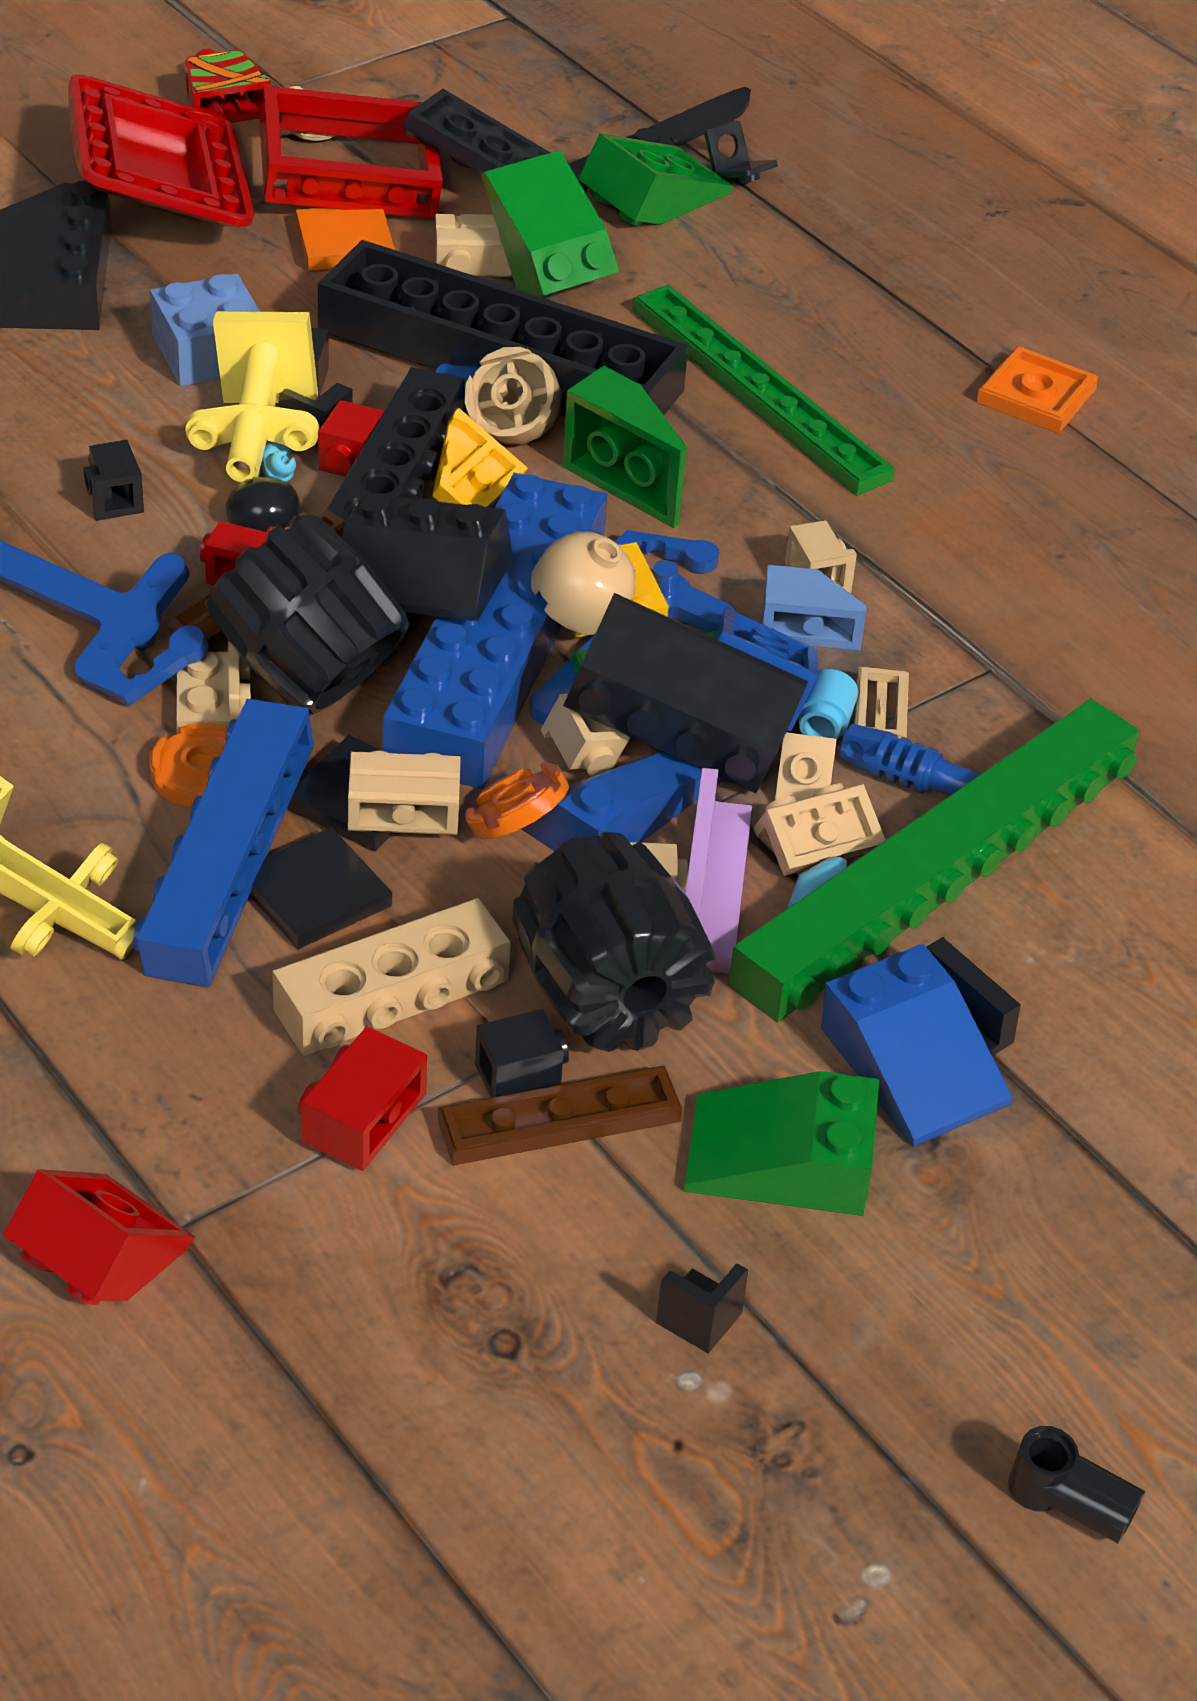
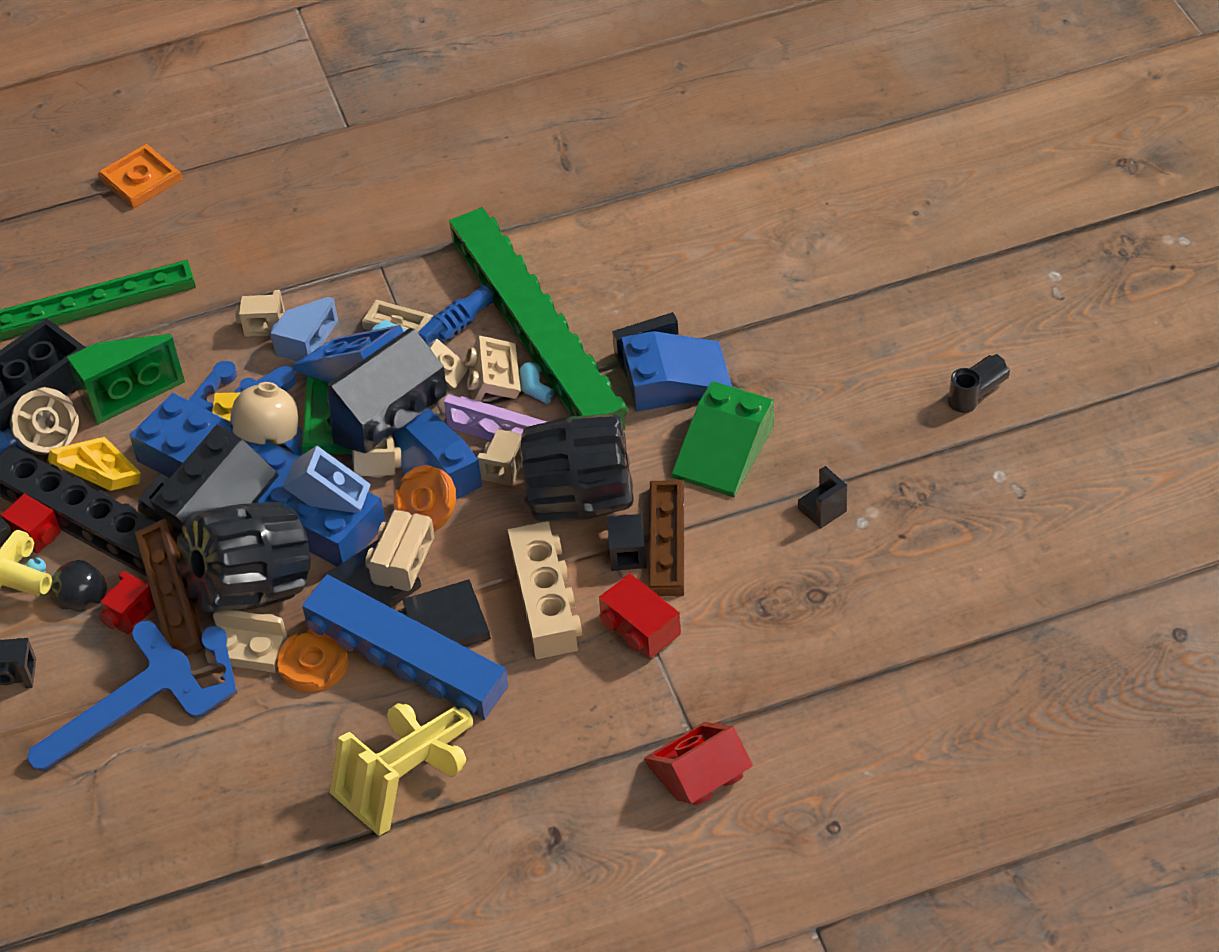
camera: 65 degrees left, 5 degrees up
(464, 663) = (326, 482): none -> medium blue slope

